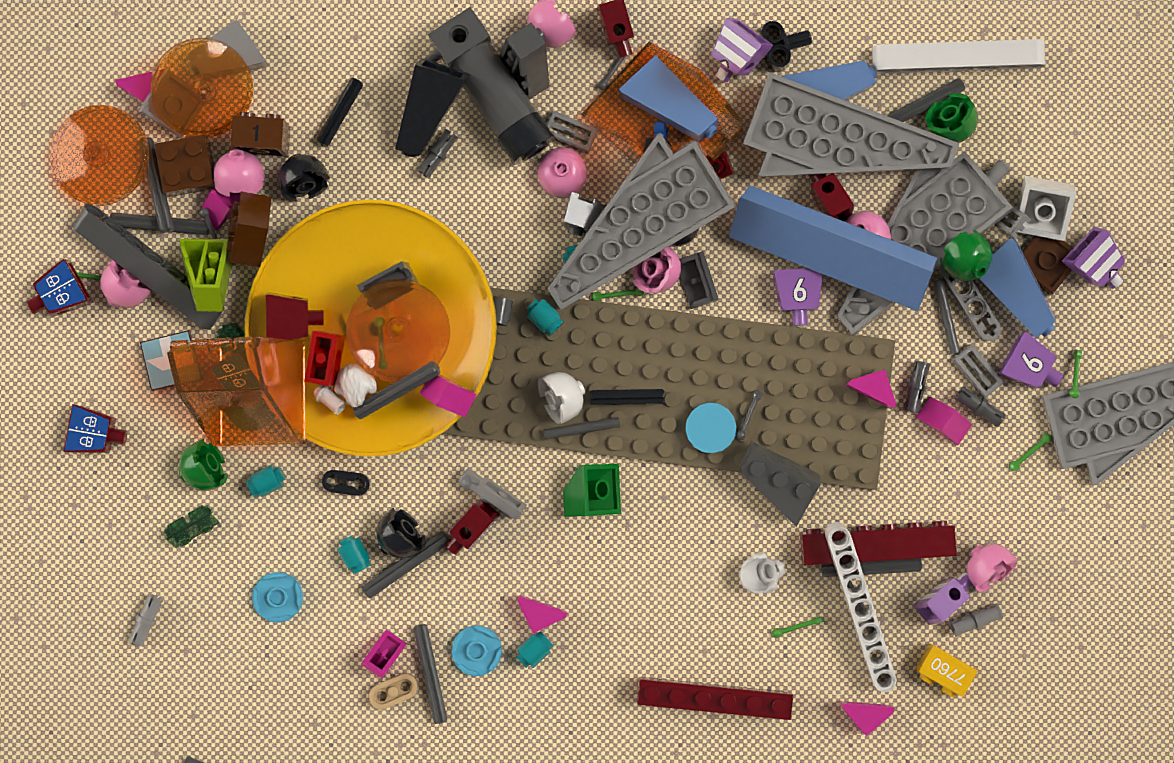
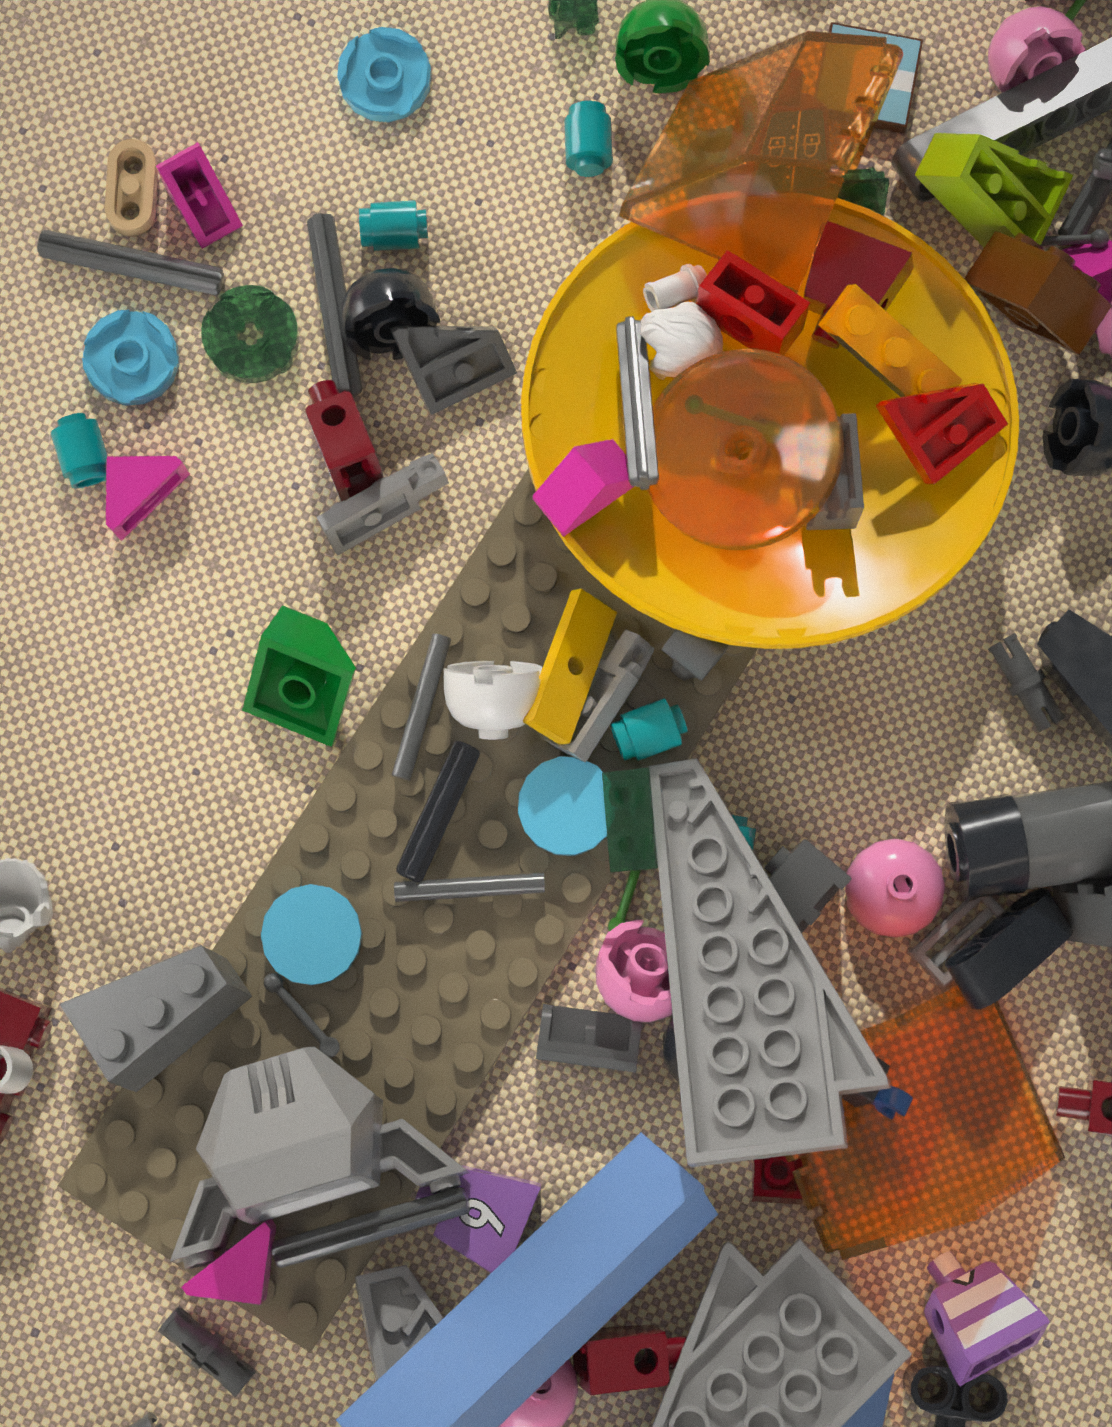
camera: 115 degrees right, 5 degrees down
(317, 283) = (885, 345): none -> light orange plate
(341, 243) = (942, 426): none -> red wing
(347, 476) = (513, 264): black beam -> none
(408, 493) = (453, 361): none -> dark grey wing
(453, 601) = (229, 317): none -> clear green plate
(531, 366) = (570, 666): none -> yellow tile
(539, 347) = (609, 690): none -> light grey hinge
(567, 107) = (1009, 949): none -> black beam
(590, 306) = (629, 820): none -> clear green hinge
(596, 338) = (564, 806): none -> medium azure tile
(603, 84) = (1022, 1037): dark grey hinge -> none
(654, 366) = (469, 887): none -> dark grey bar
(669, 100) = (945, 1139): medium blue slope -> none
(806, 388) = (293, 1139): none -> light grey helmet
(828, 337) = (370, 1227): none -> dark grey axle
(944, 420) = (122, 1372): dark pink slope -> none

